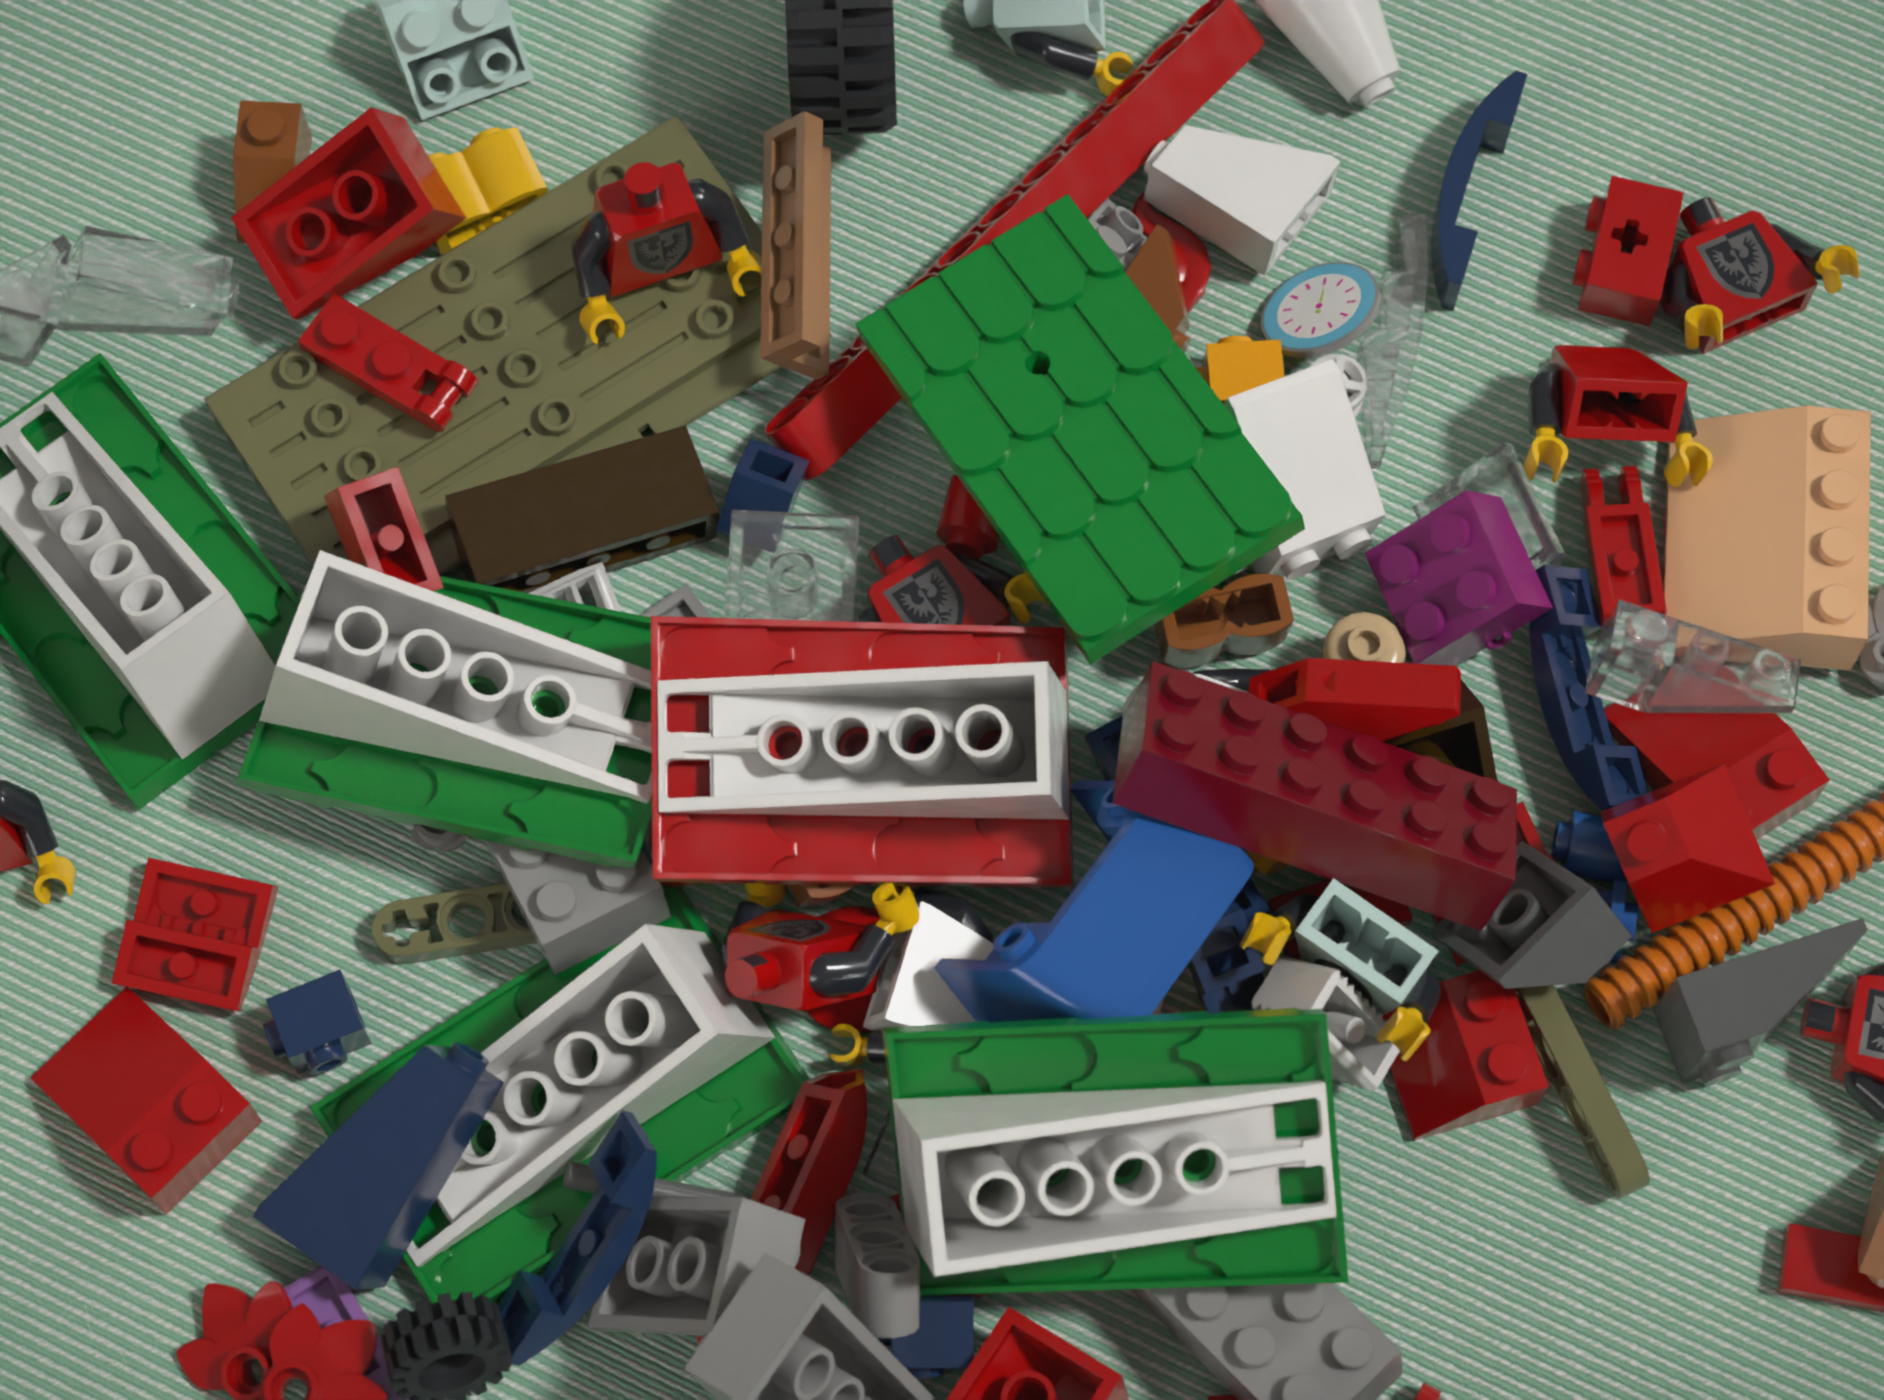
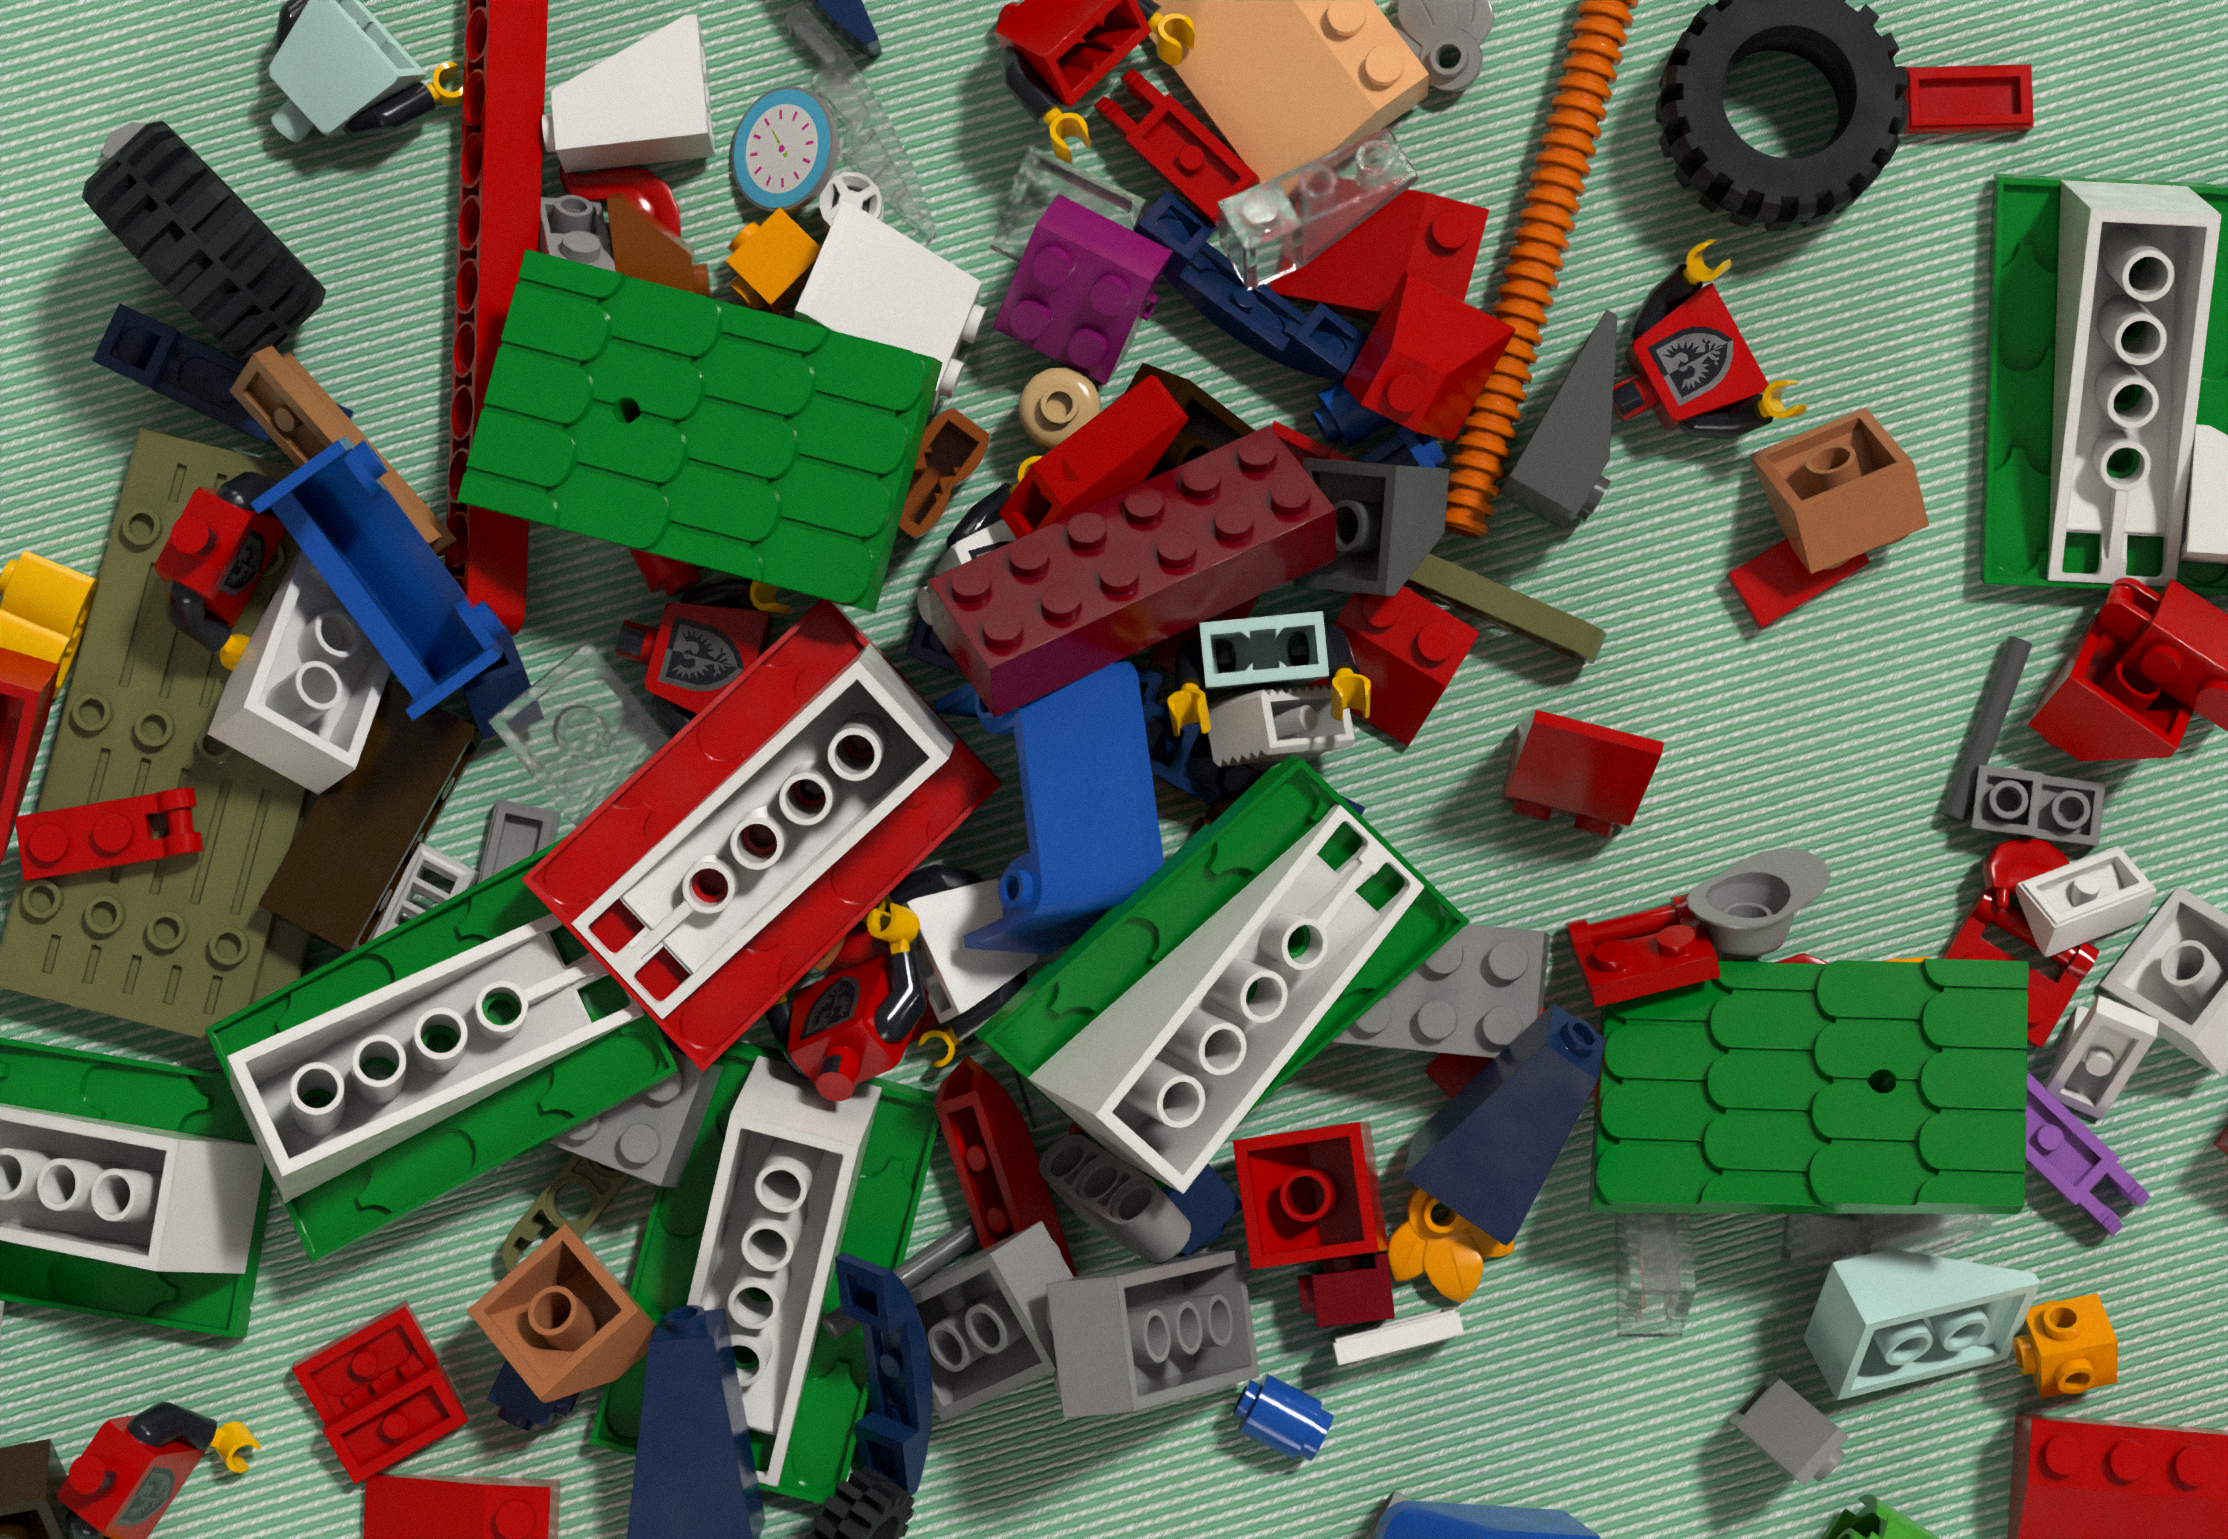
camera: 40 degrees left, 15 degrees up
(378, 985) = (564, 1319): none -> nougat slope
(383, 529) = (246, 981): red slope -> none
(635, 371) = (303, 685): none -> white slope
(739, 100) = (178, 369): none -> dark blue slope
(756, 318) = (385, 572): none -> blue windscreen
(1538, 1257) = (1578, 772): none -> red slope

